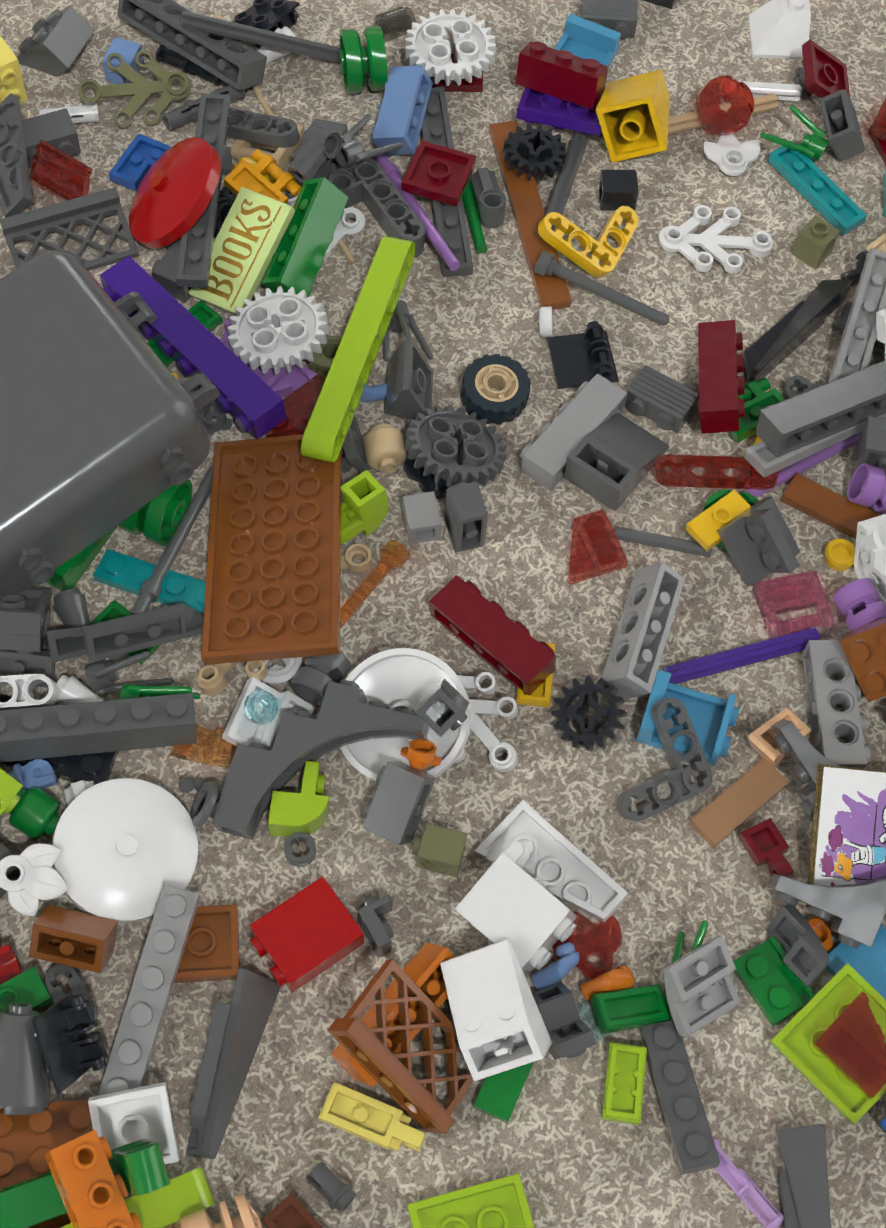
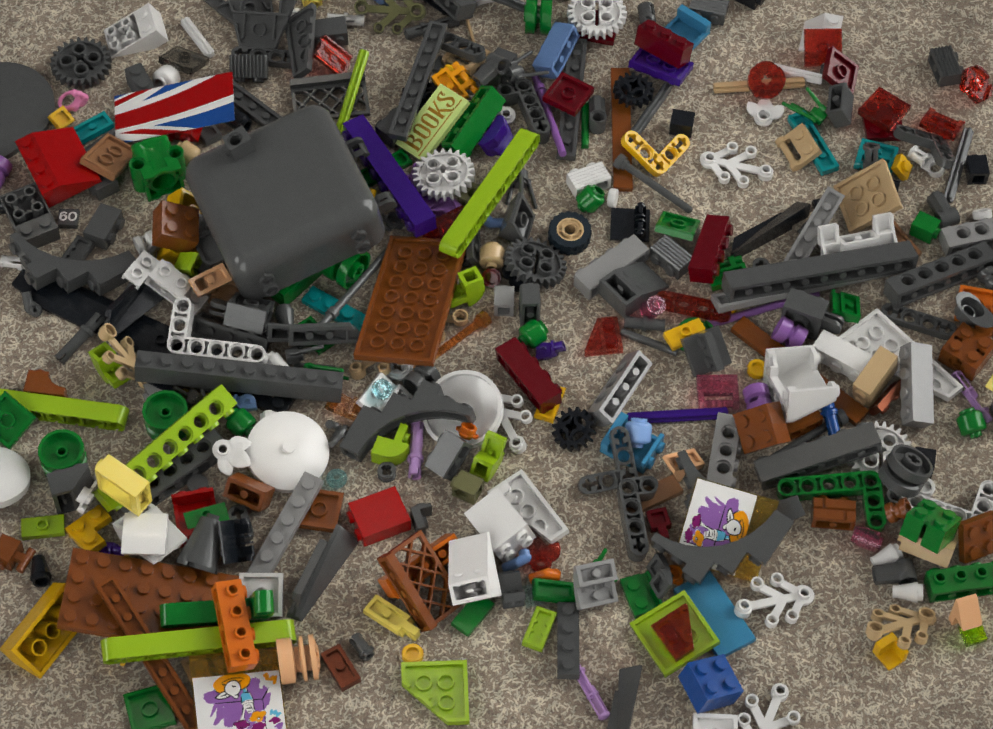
camera: 15 degrees right, 5 degrees down
(104, 215) = (352, 88): none -> lime axle
(137, 161) = (387, 54): blue plate -> none
(174, 192) = (399, 80): red dish -> none
(218, 889) = (336, 483): none -> clear light blue plate
(342, 812) = (415, 456): none -> lavender pin
(346, 259) = (496, 137): none -> dark purple slope
(393, 481) = (491, 277): none -> dark red plate
(421, 1180) = (412, 653): none -> yellow tile
(443, 708) = (485, 406): dark grey brick -> none
(464, 790) = (489, 457): none -> lime brick
(481, 563) = (533, 333): none -> green head
(502, 300) = (592, 174): none -> white brick
(512, 586) = (549, 350): none -> dark purple piece
(514, 329) = (590, 198): none -> green head
(518, 35) = (646, 11): none -> dark grey hinge
(635, 115) = (704, 77): yellow slope -> none
(649, 513) = (644, 323): none -> dark grey pin
(657, 348) = (677, 226): none -> green tile
(657, 485) = (653, 306): none -> clear pink brick
(696, 695) = (639, 432): none -> light blue head
(734, 850) = (635, 519): none -> dark grey beam
(782, 43) = (816, 45): none -> clear red plate
(805, 189) = (804, 145): none -> tan plate
(815, 242) = (799, 177): olive brick -> none

